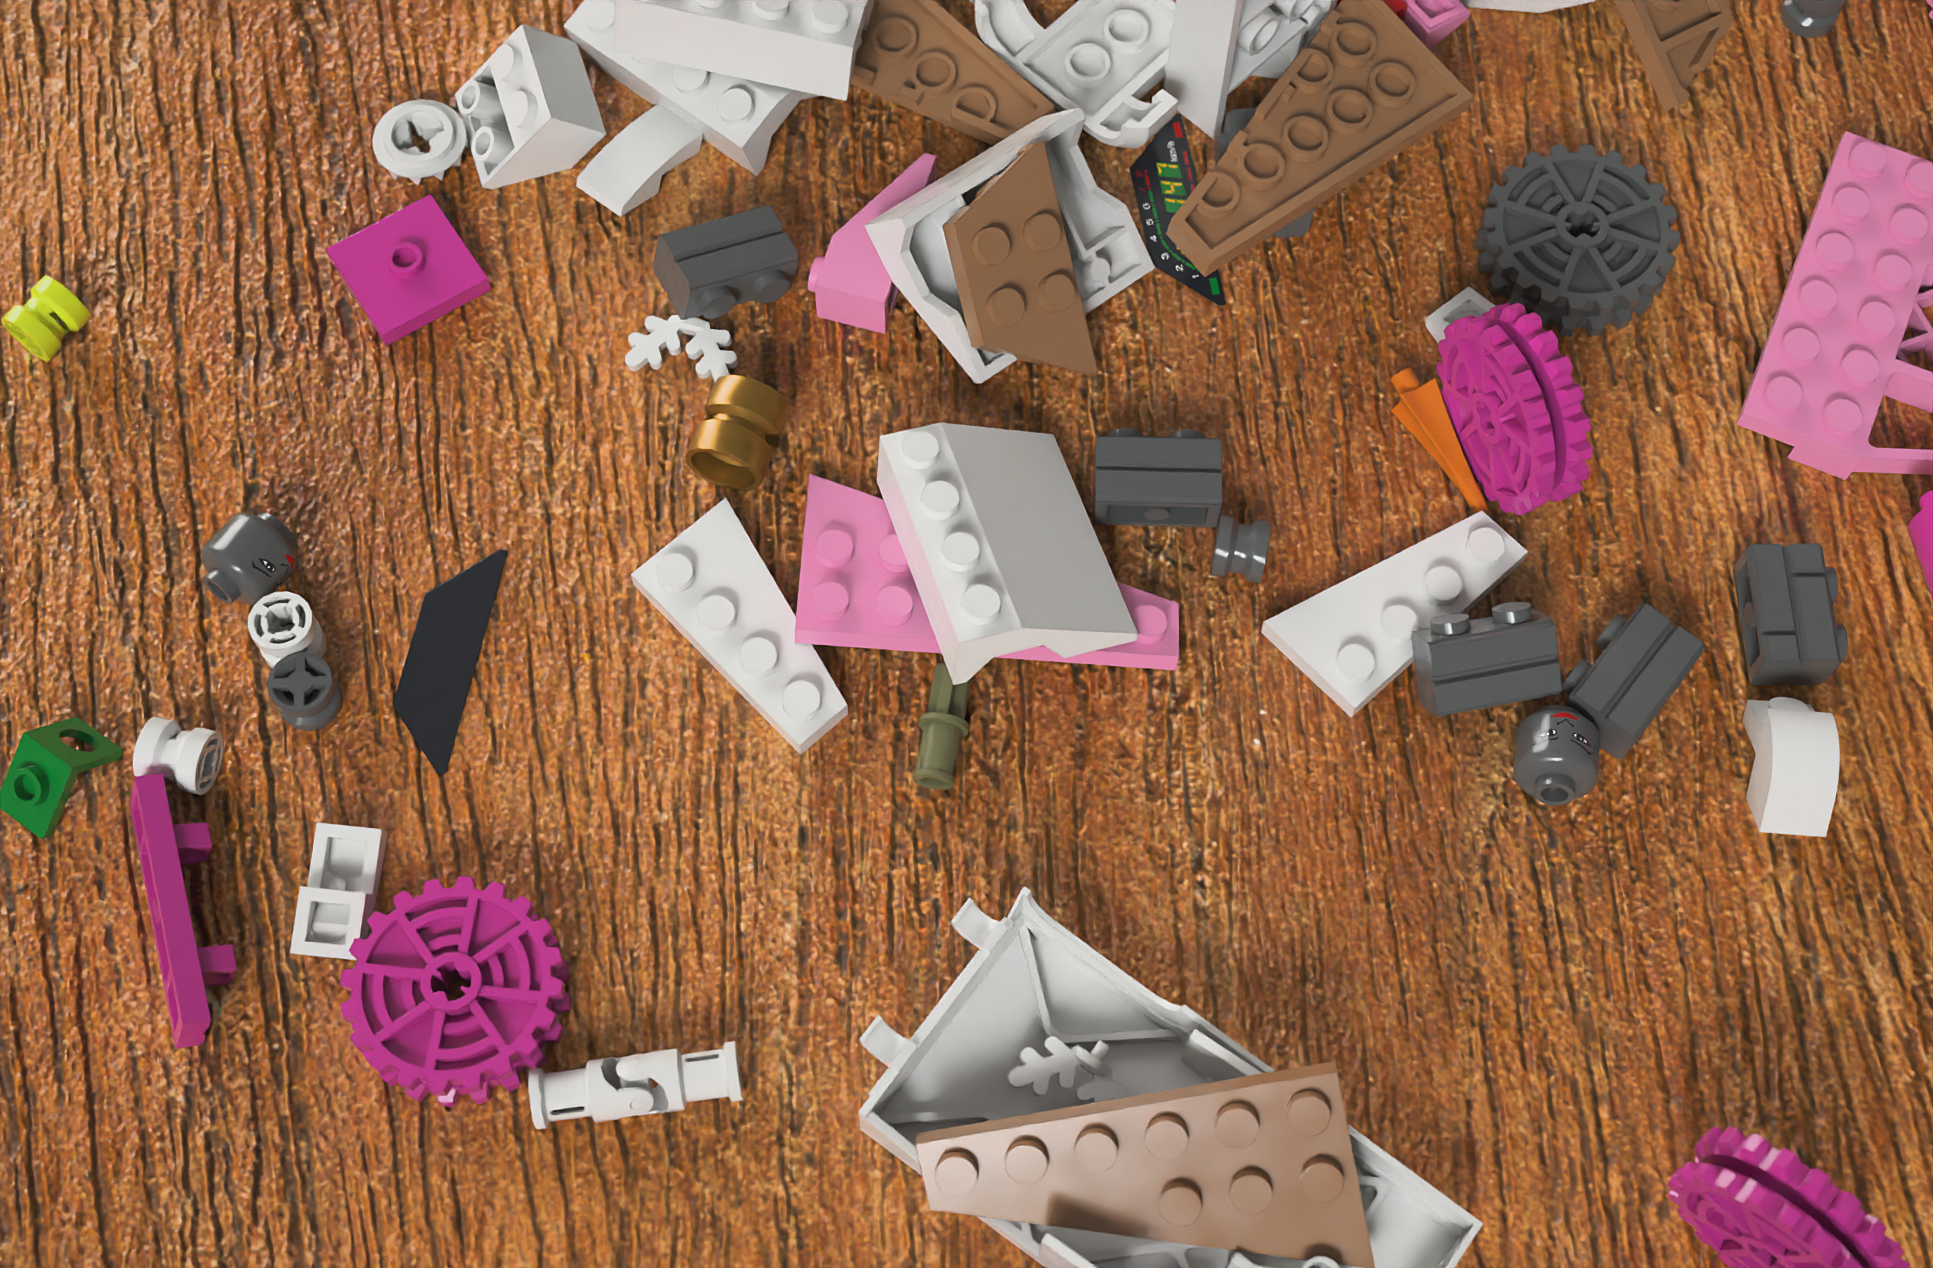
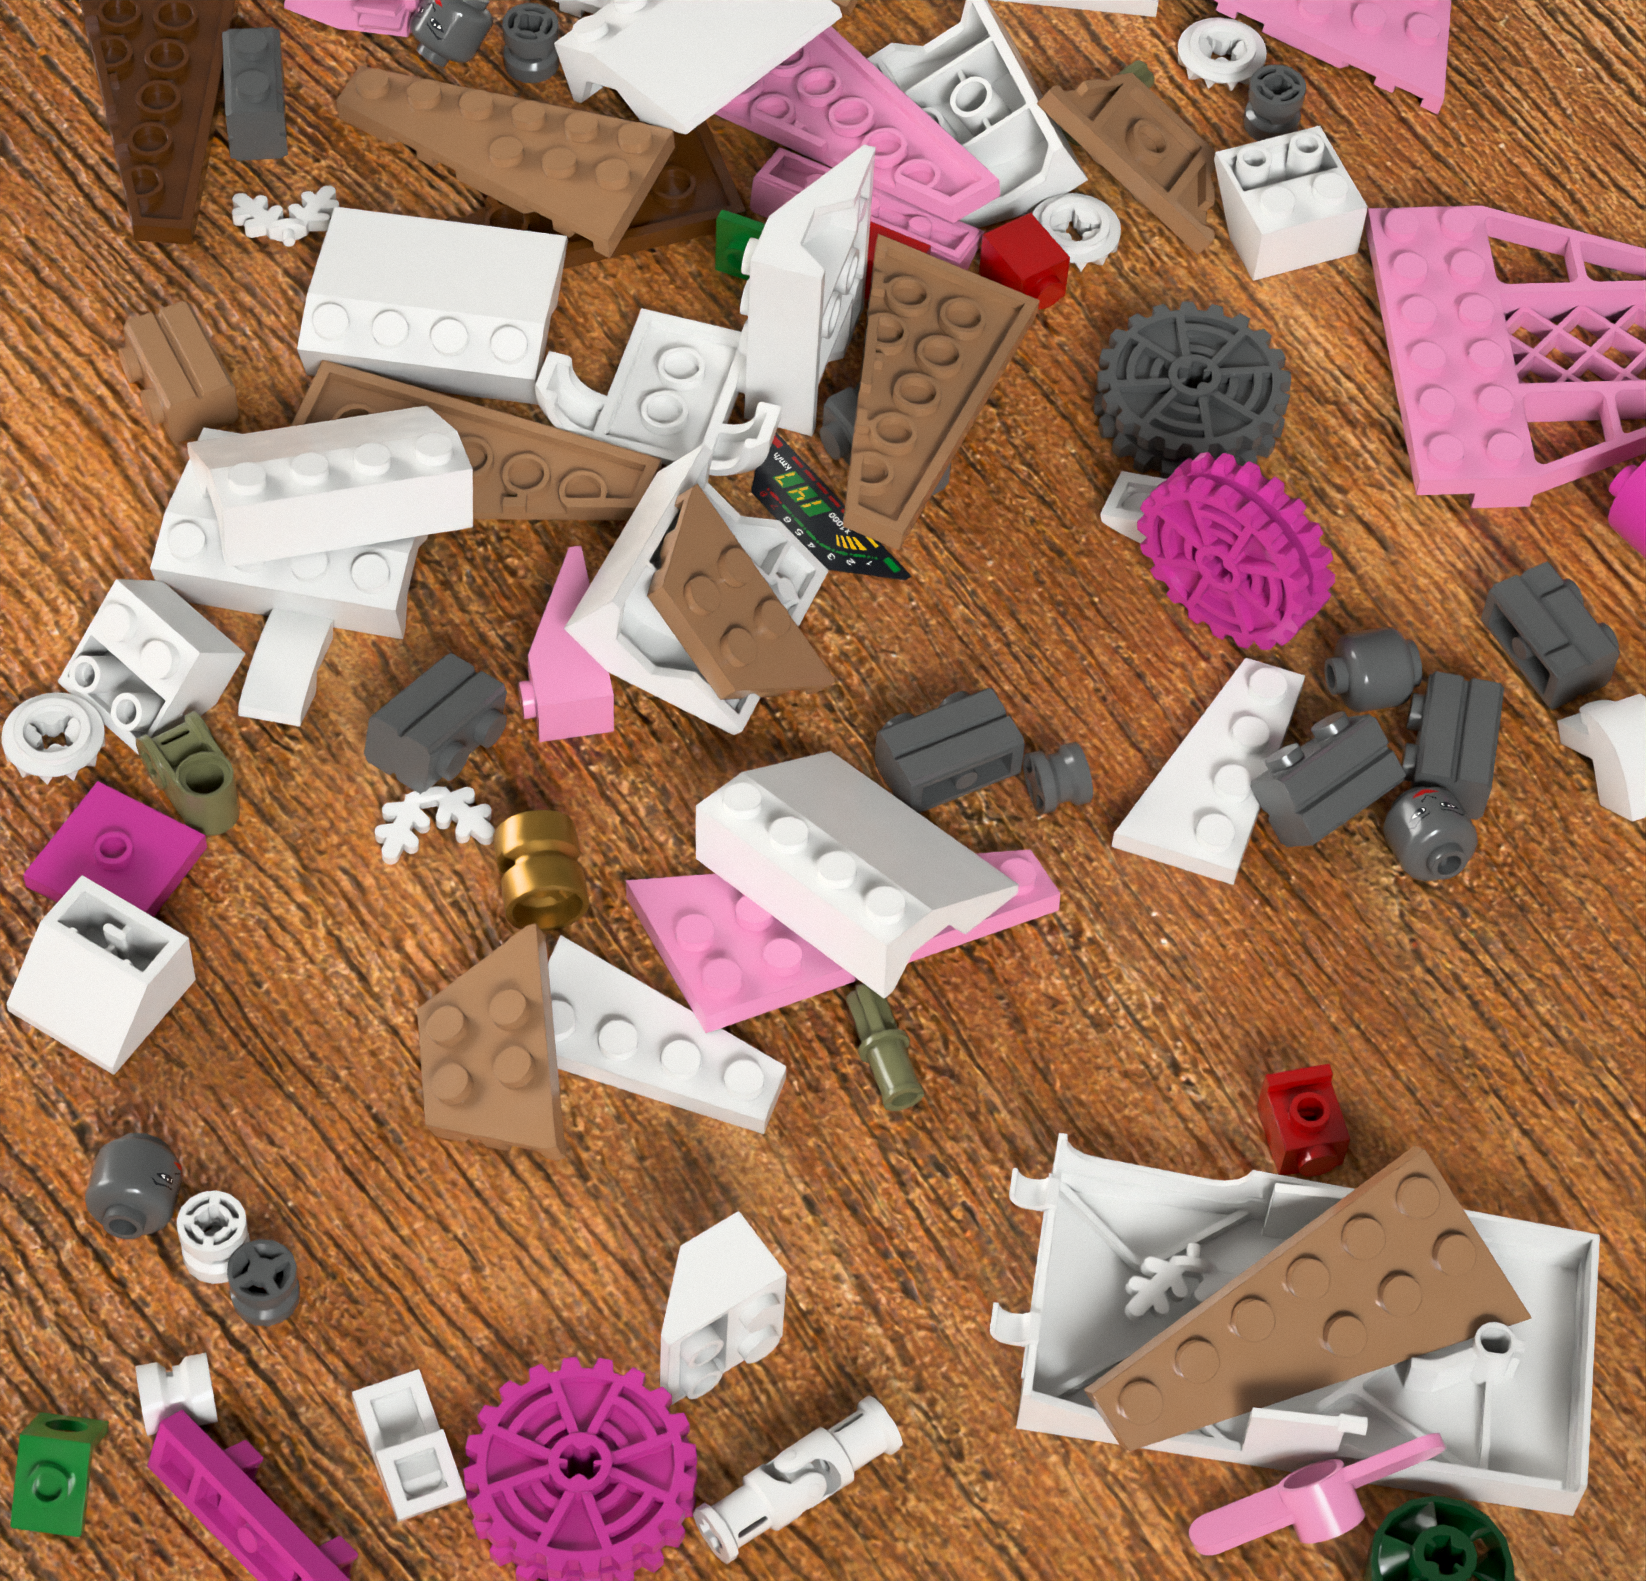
camera: 30 degrees left, 10 degrees down
(326, 364) = (101, 974): none -> white slope
(445, 657) = (373, 1197): black sticker -> none
(509, 222) = (193, 775): none -> olive piece
(606, 578) = (494, 1052): none -> medium nougat wing
(639, 901) = (720, 1308): none -> white slope
(1284, 949) = (1303, 1121): none -> red brick
(1426, 417) = (1152, 600): orange piece -> none
(1491, 56) = (1025, 260): none -> red brick
(1582, 40) = (1093, 222): none -> white gear
(1593, 574) = (1373, 669): none -> dark grey head
(1773, 95) = (1289, 202): none -> white slope

